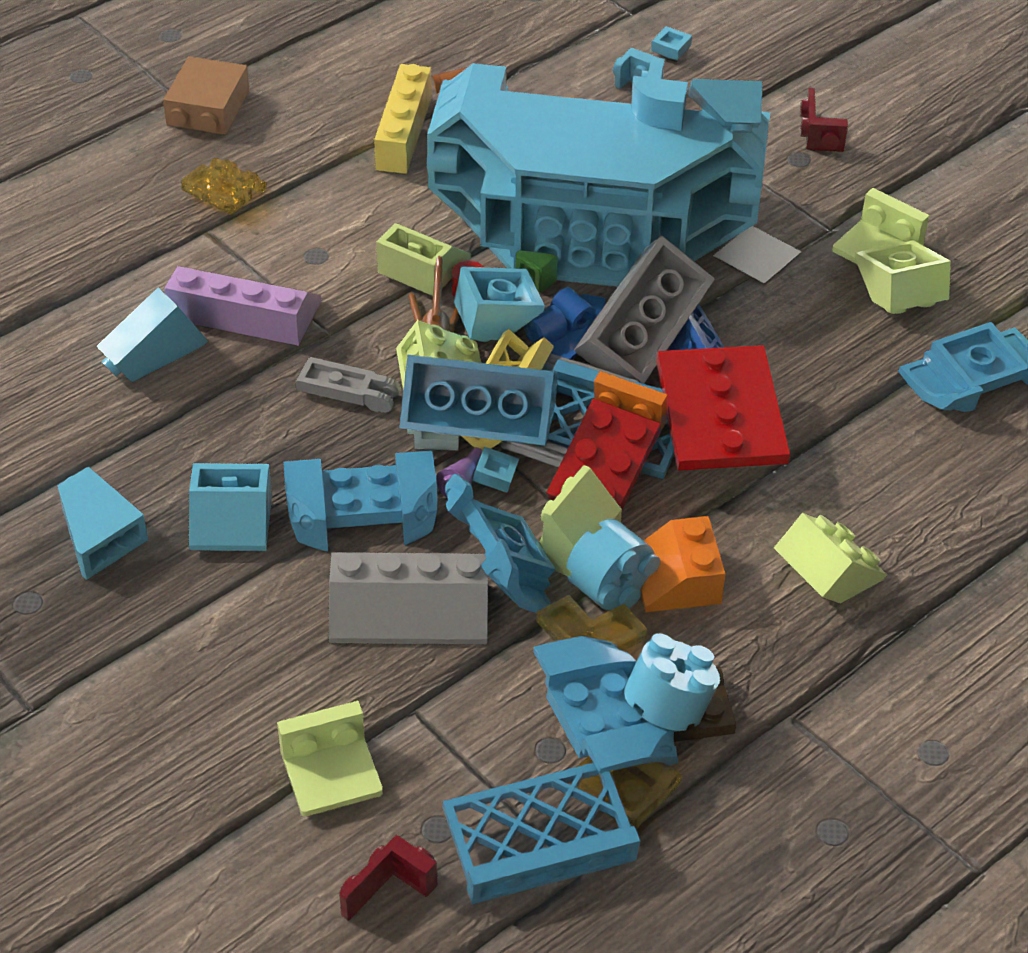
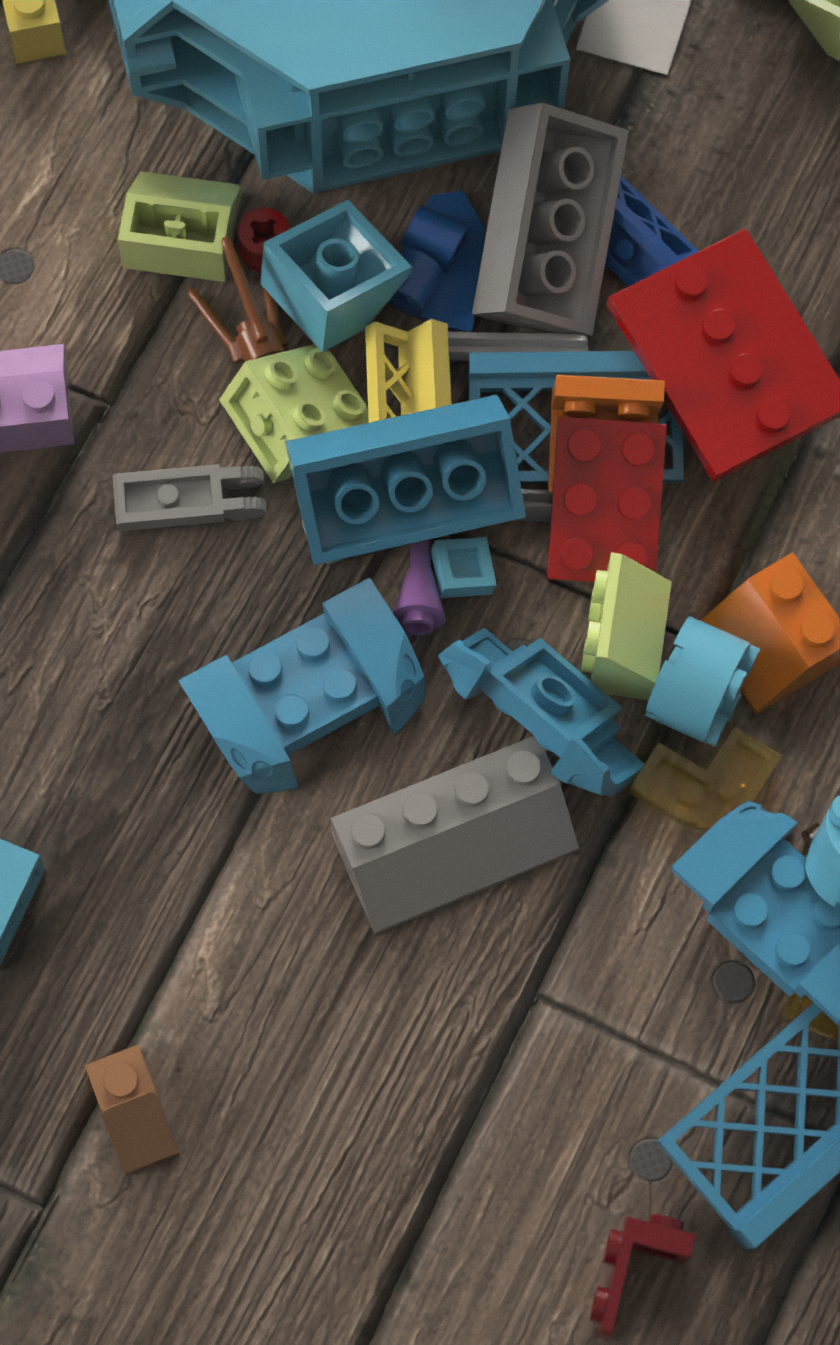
camera: 25 degrees left, 25 degrees up
(117, 676) = (131, 1110): none -> medium nougat slope
(229, 507) = (144, 787): medium azure slope -> none
(328, 759) = (482, 1135): yellowish green bracket -> none
(540, 266) = (350, 181): bright green slope -> none

